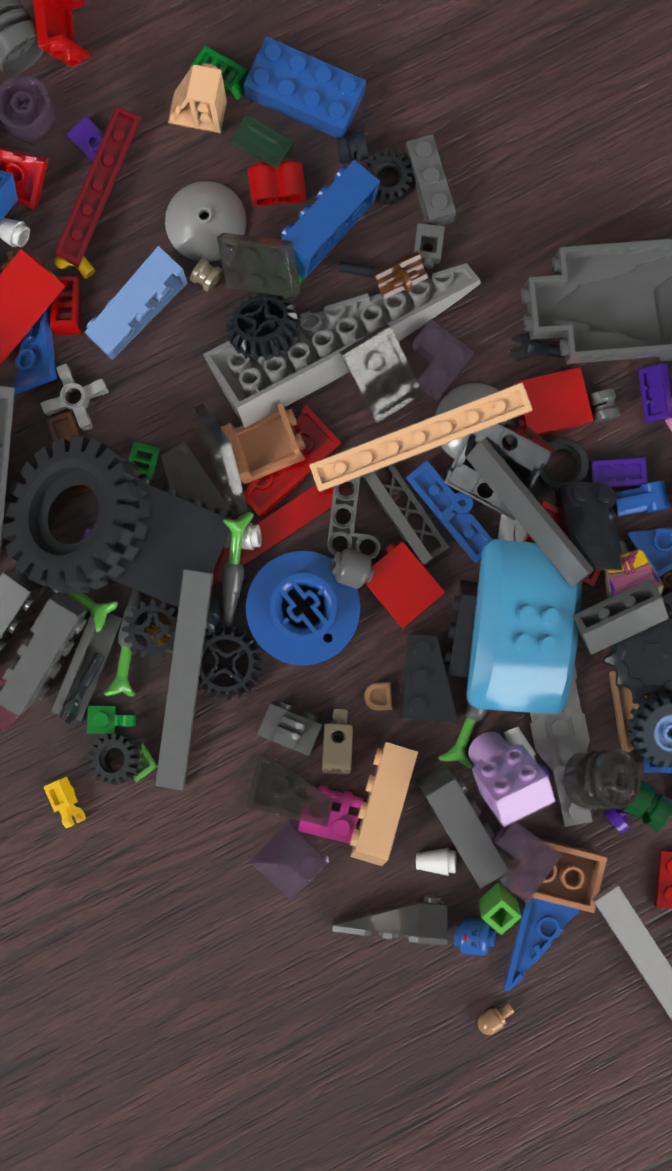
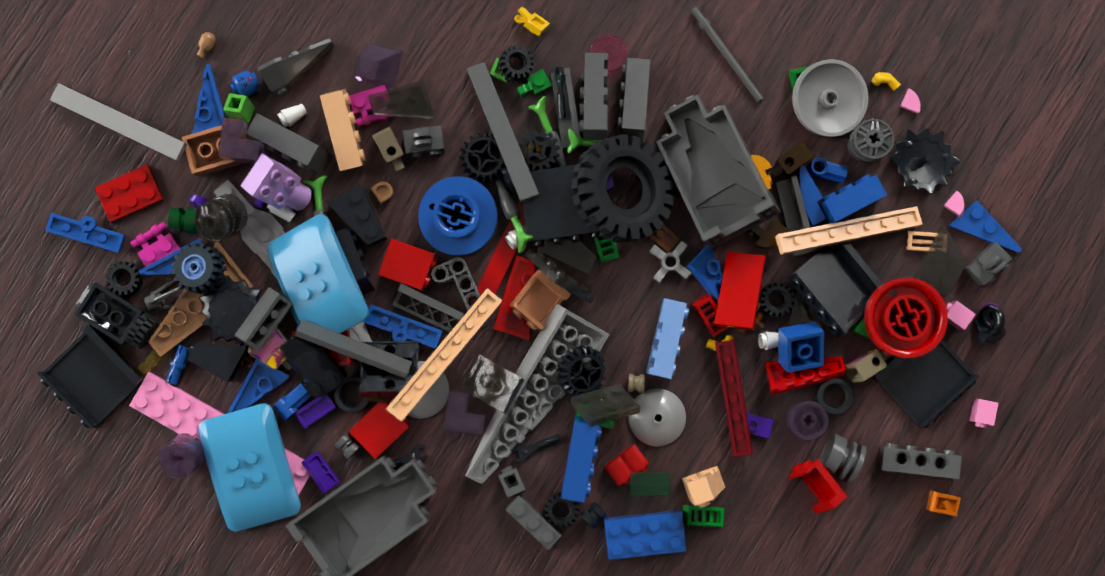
camera: 155 degrees right, 0 degrees up
(352, 568) = (441, 254): dark grey head -> none
(400, 275) = (516, 451): reddish brown hips -> none

